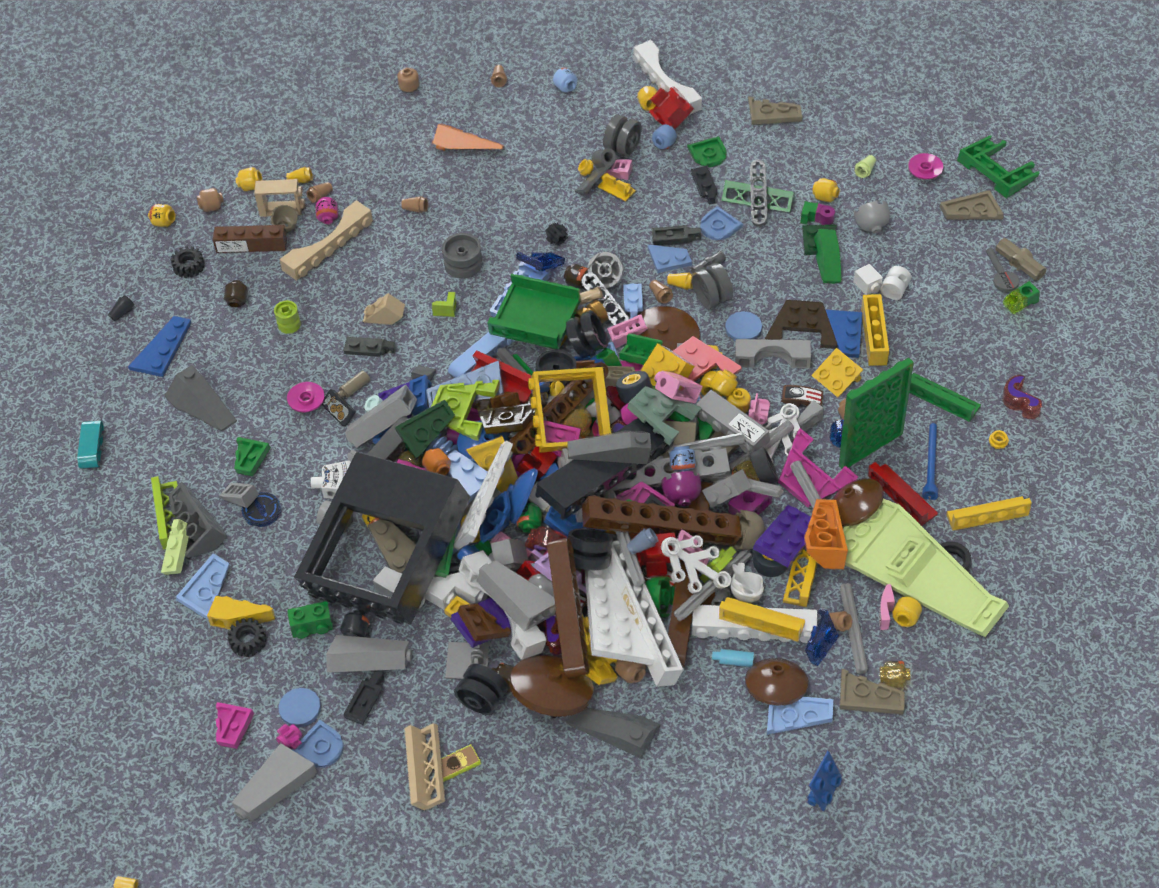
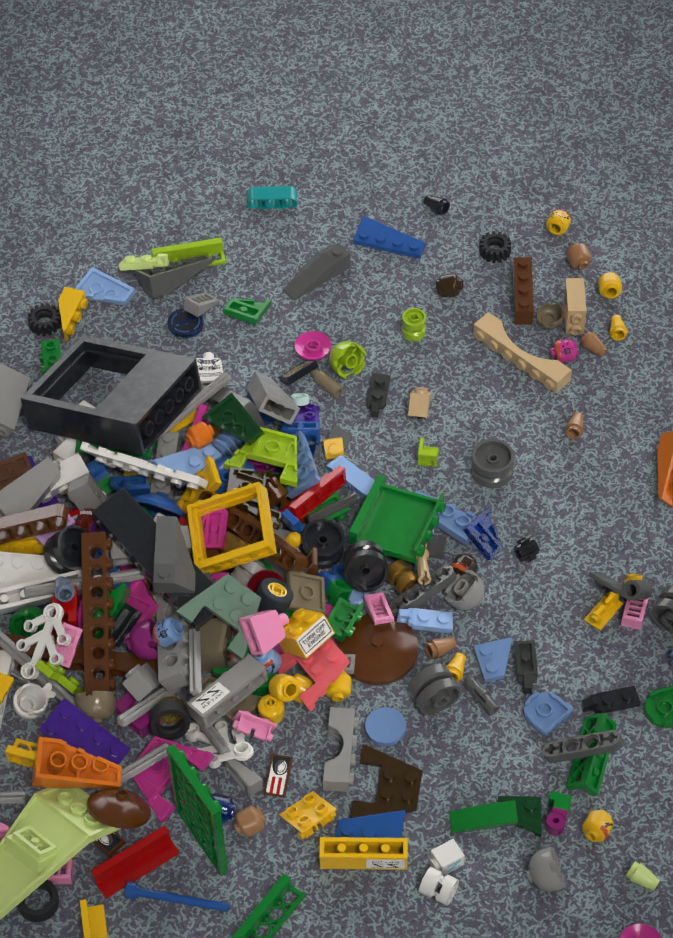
camera: 90 degrees right, 0 degrees up
(326, 368) = (347, 354): none -> lime cylinder
(437, 373) = (333, 448): none -> yellow plate

